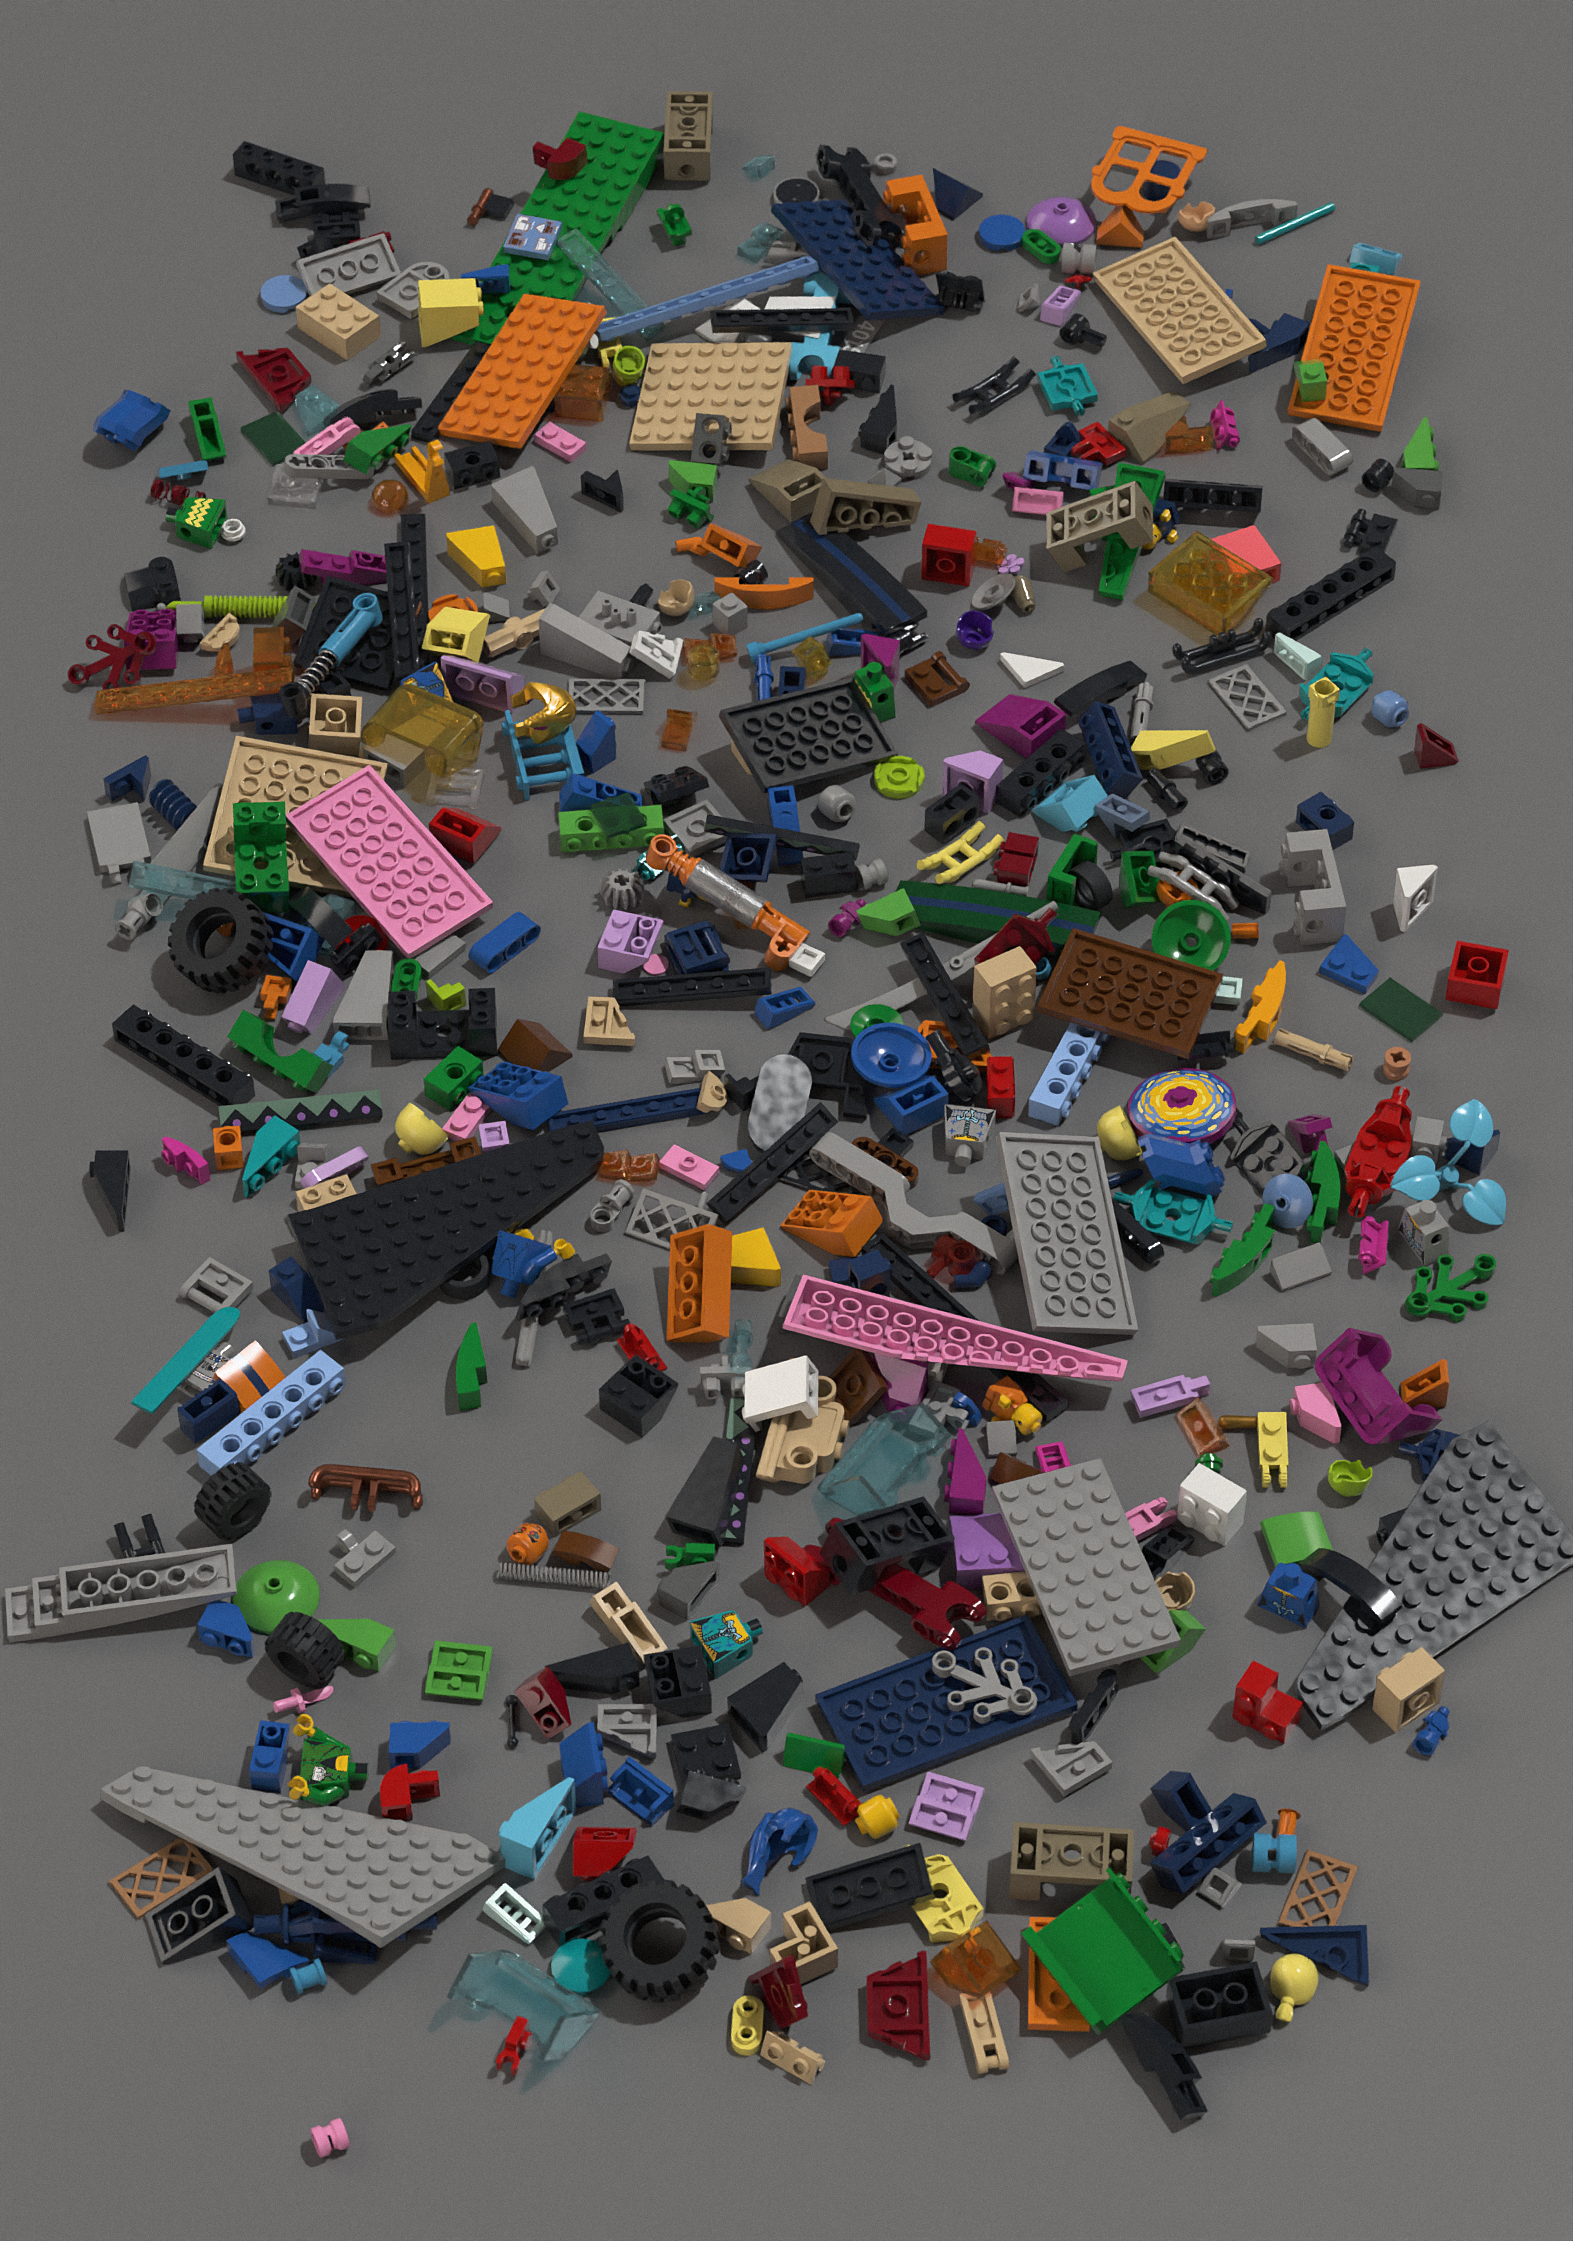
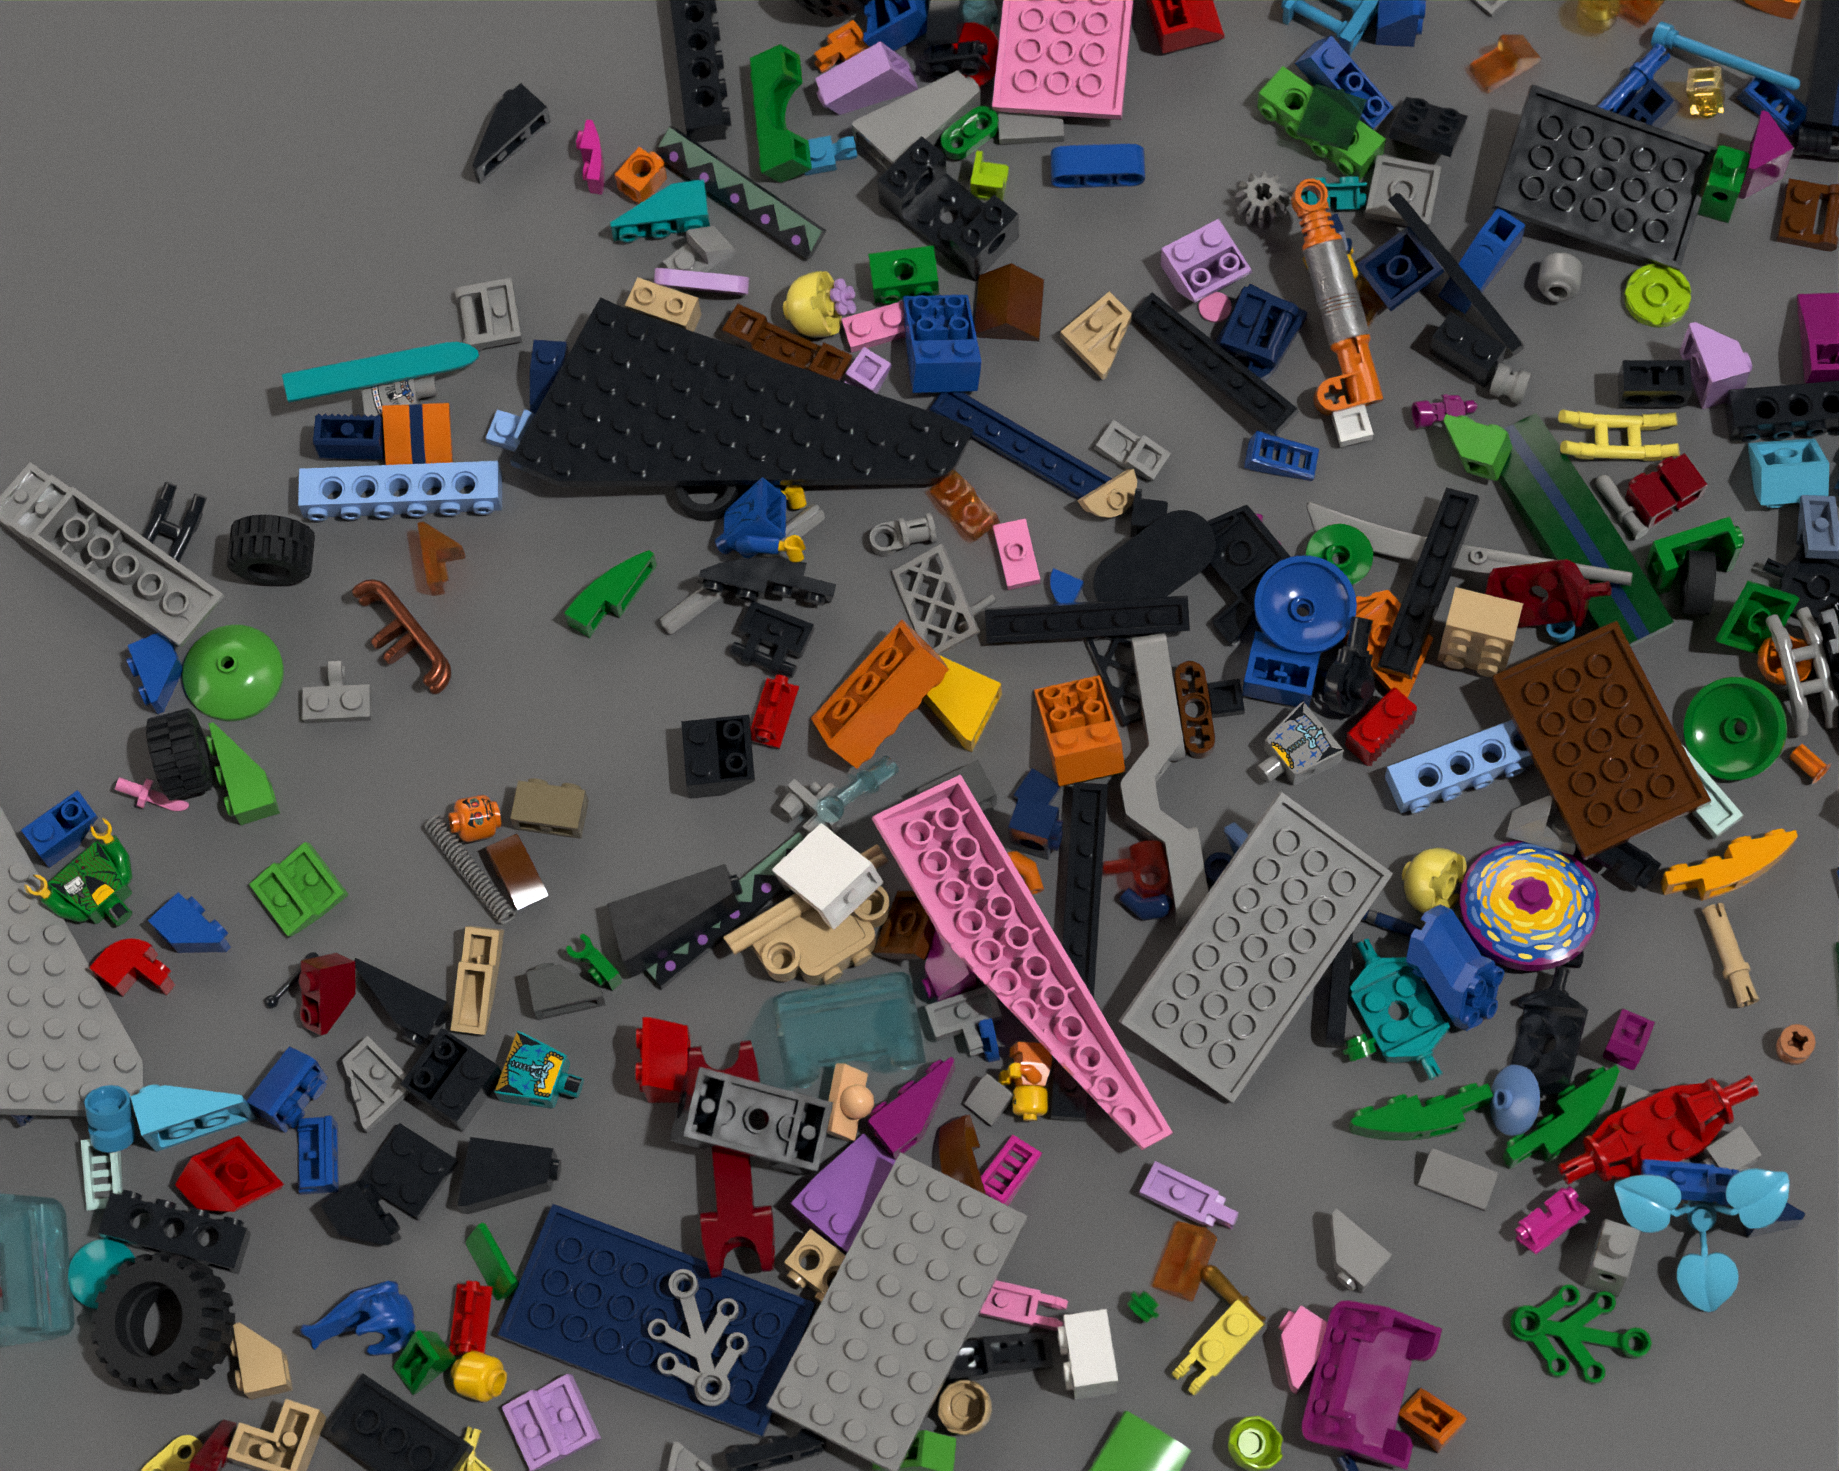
camera: 50 degrees right, 20 degrees up
(335, 1432) = (436, 551): none -> clear orange slope
(432, 1116) = (842, 296): none -> lavender plant
(496, 1868) = (110, 1118): none -> dark azure wheel
(835, 1836) = (423, 1360): none -> green slope
(931, 1491) = (850, 1101): none -> light nougat tile
(1140, 1066) = (1535, 826): none -> light grey slope
(1173, 1247) = (1359, 1047): none -> green plate
(1437, 1149) = (1694, 1180): none -> blue hinge

